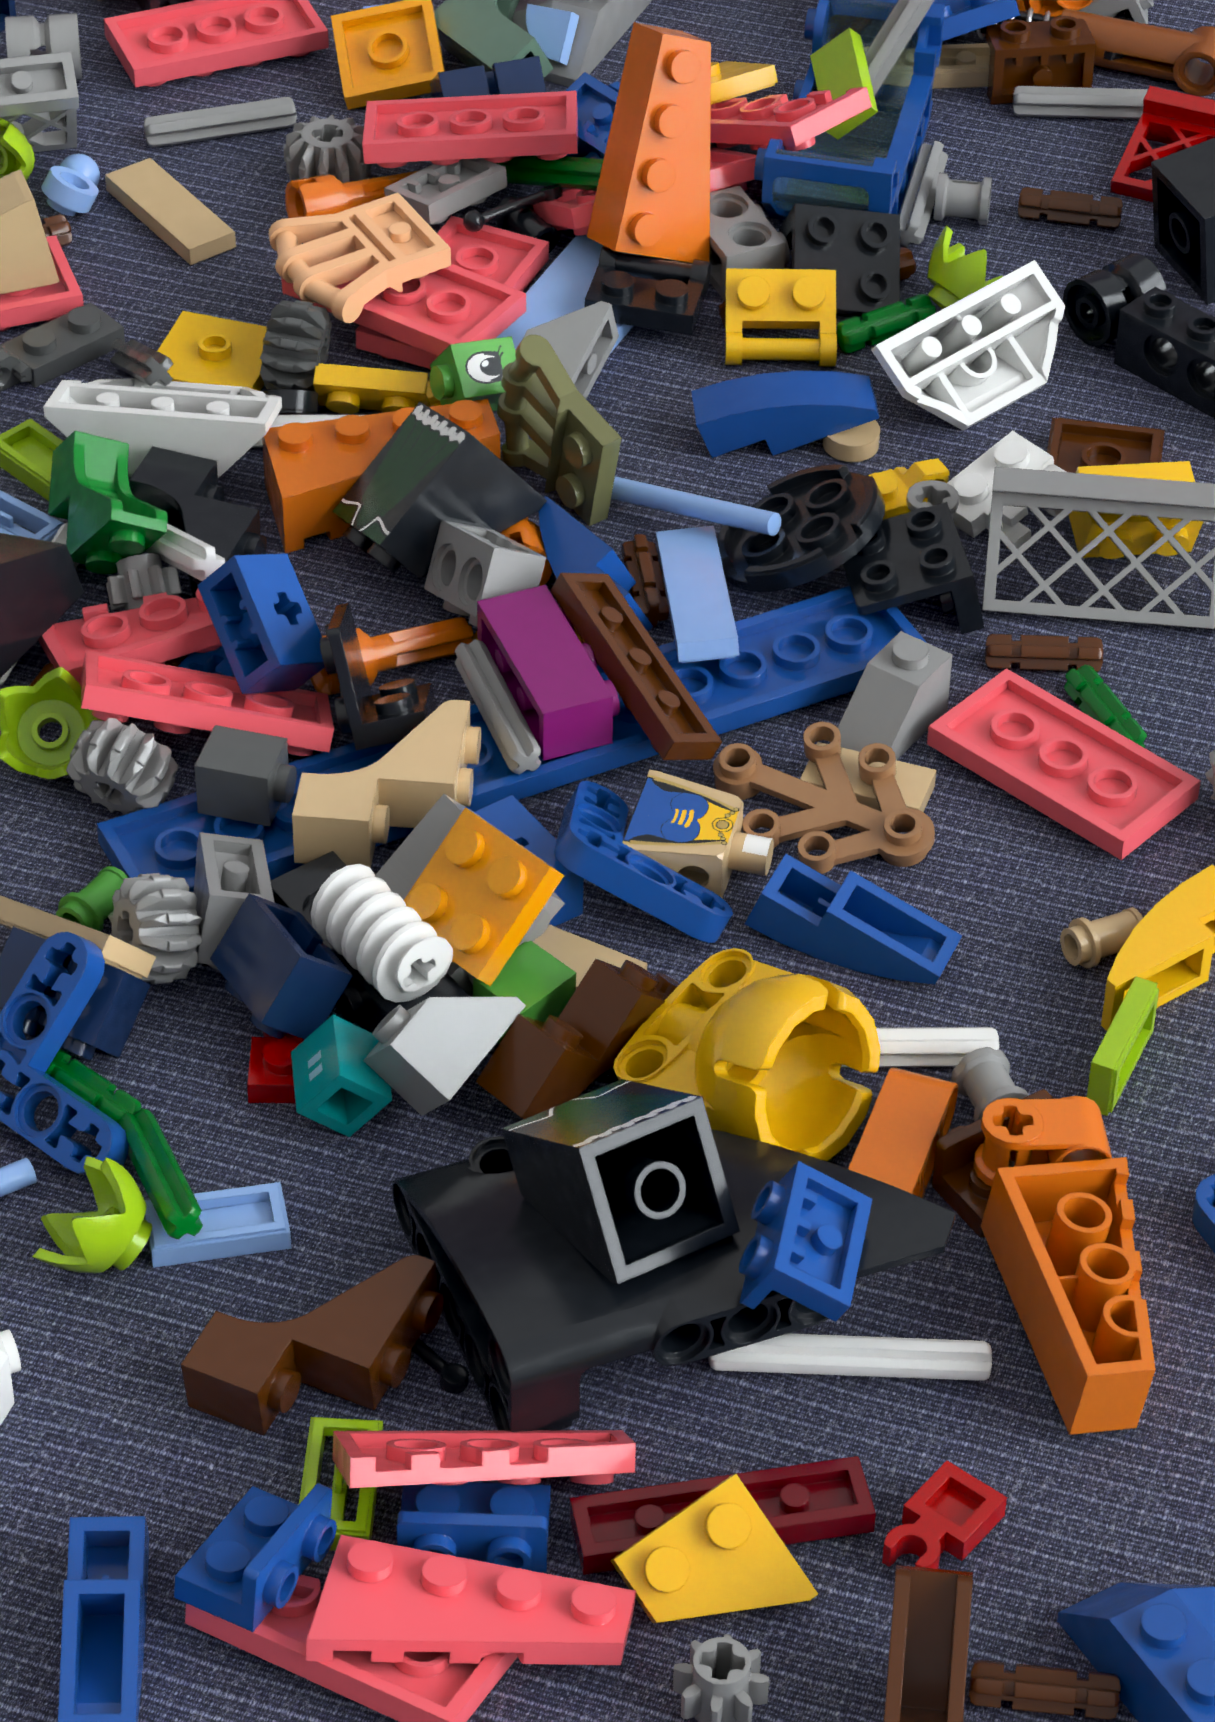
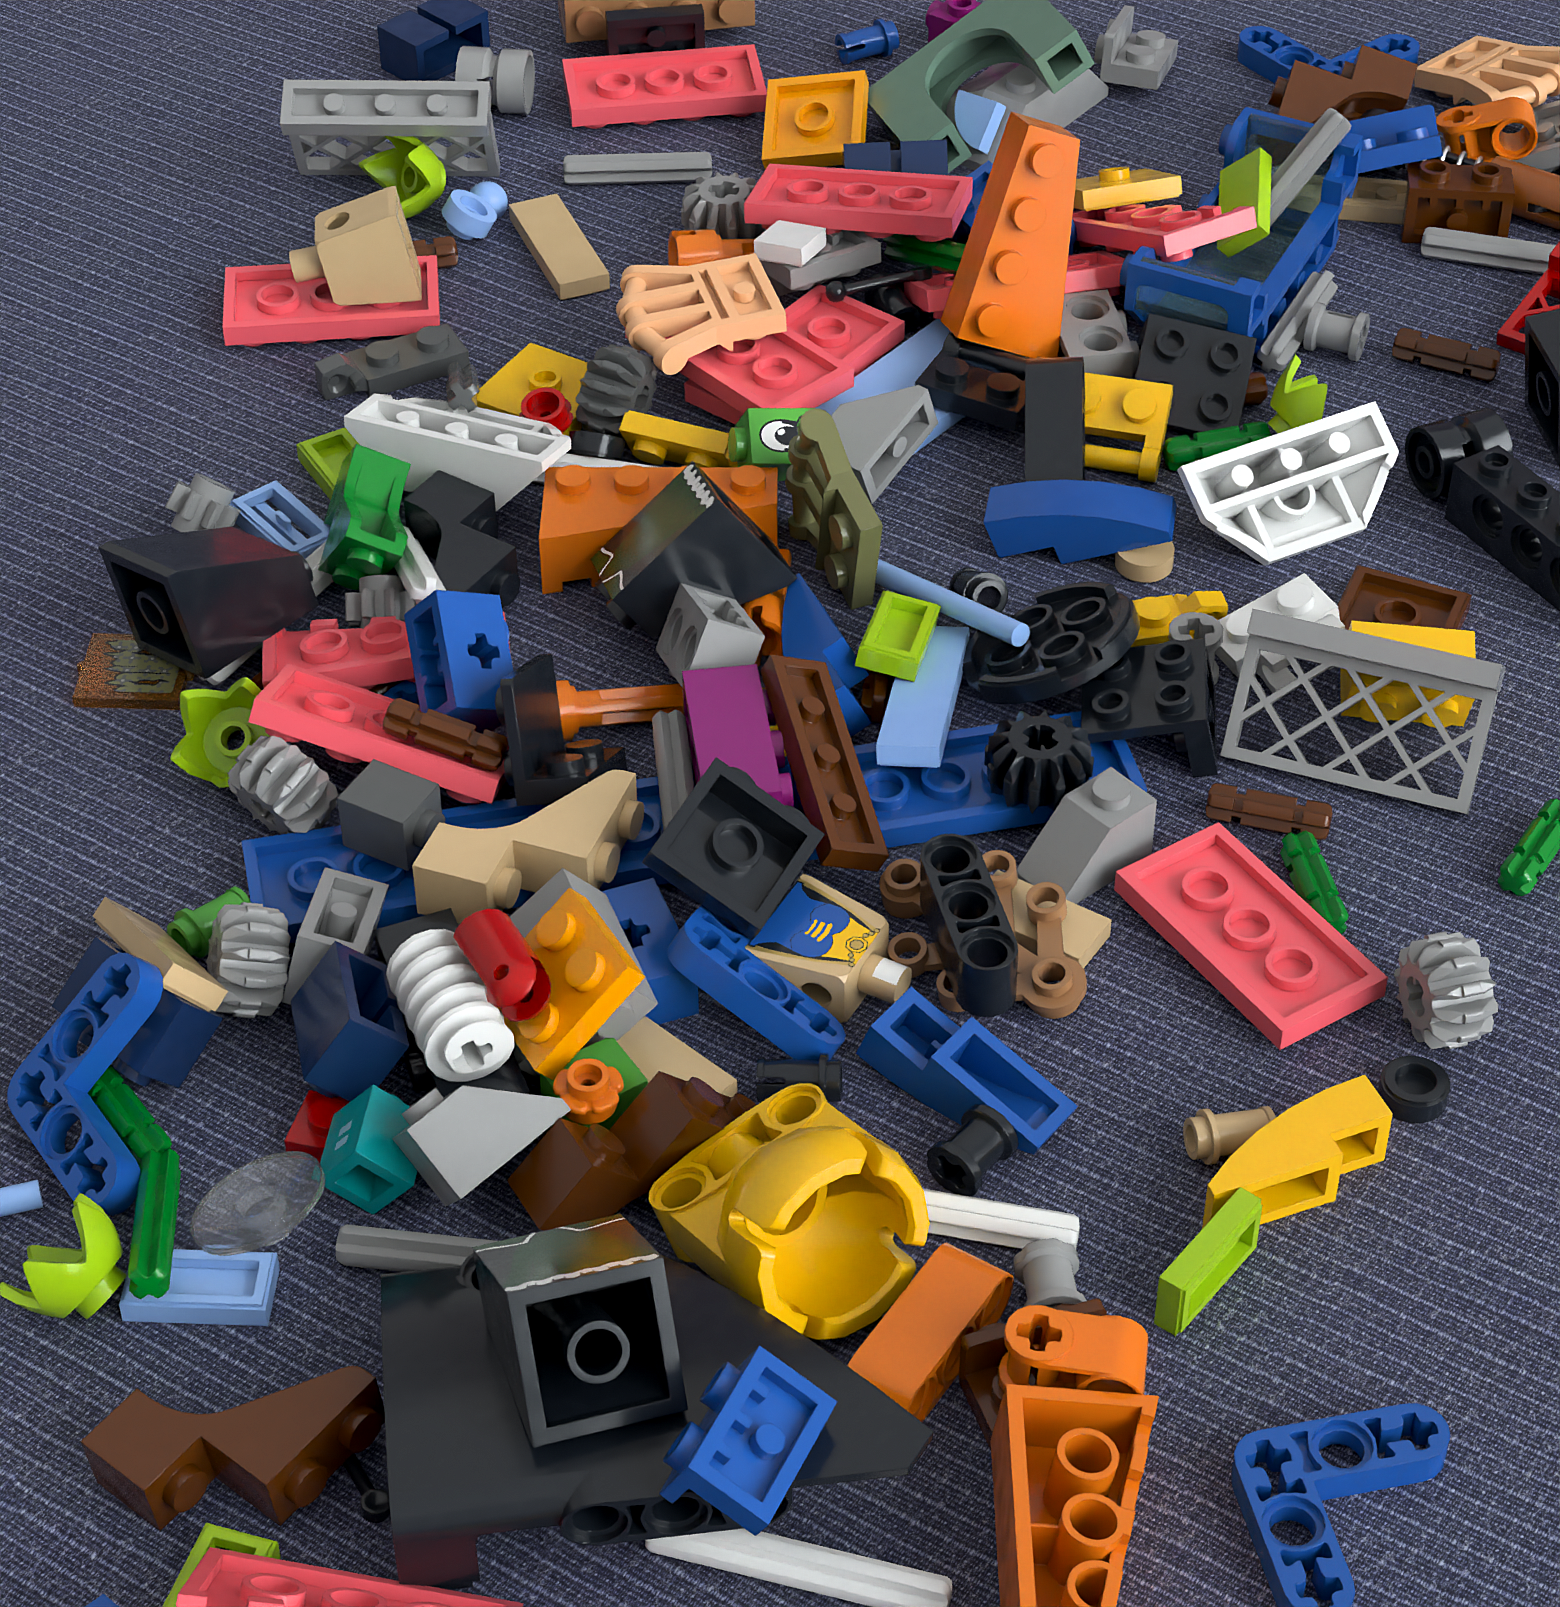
camera: 15 degrees right, 0 degrees up
(233, 370) = (547, 406): none -> red plate
(250, 1140) = (258, 1203): none -> clear dish
(271, 693) = (445, 734): none -> reddish brown axle
(398, 1159) = (401, 1249): none -> light grey axle
(420, 178) = (790, 243): none -> white tile
(430, 885) = (505, 964): none -> red piece
(534, 985) = (589, 1090): none -> orange plate
(590, 752) = (734, 848): none -> black plate
(656, 541) = (898, 635): none -> lime tile
(699, 949) = (821, 1072): none -> black pin
(717, 485) = (980, 587): none -> black pin
(735, 317) = (1054, 419): none -> black beam
(818, 791) = (968, 925): none -> black beam
(831, 635) = (1037, 760): none -> black gear
(886, 980) = (972, 1150): none -> black bush

